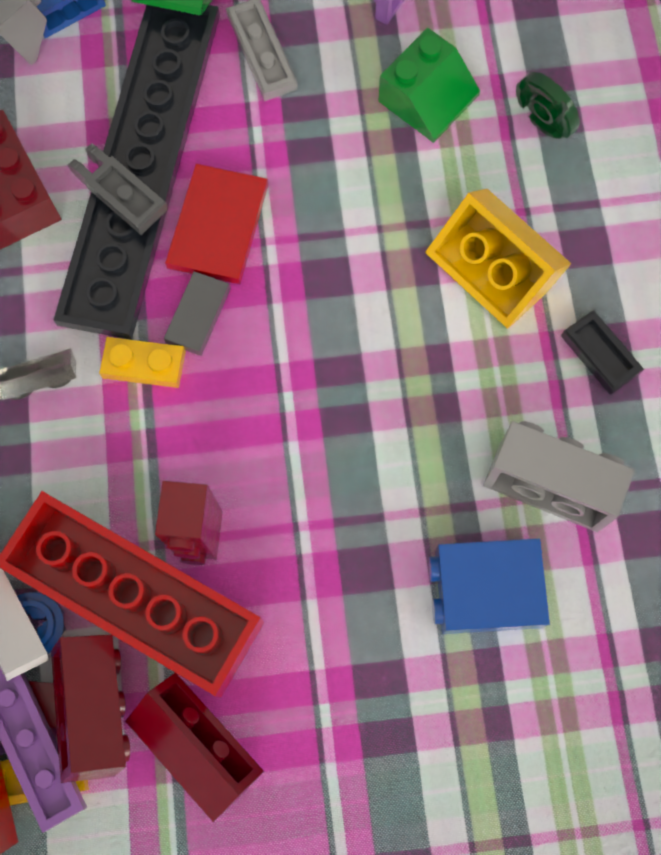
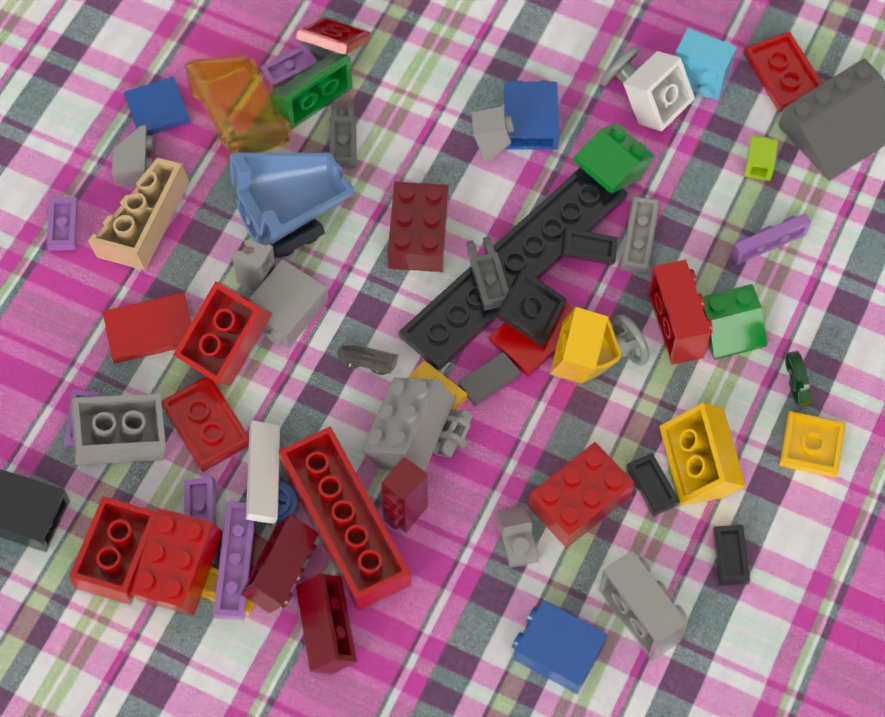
camera: 30 degrees right, 10 degrees down
(137, 427) = (408, 422): none -> light grey brick
(194, 199) = (531, 307): none -> black tile
(197, 406) = (453, 433): none -> light grey piece
(213, 91) = (589, 246): none -> black tile
(294, 201) = (591, 347): none -> yellow piece
(350, 481) = (517, 536): none -> light grey slope
(367, 104) = (679, 311): none -> red brick
(393, 386) = (580, 494): none -> red brick
(462, 324) = (652, 484): none -> black tile
(602, 173) = (812, 444): none -> yellow tile

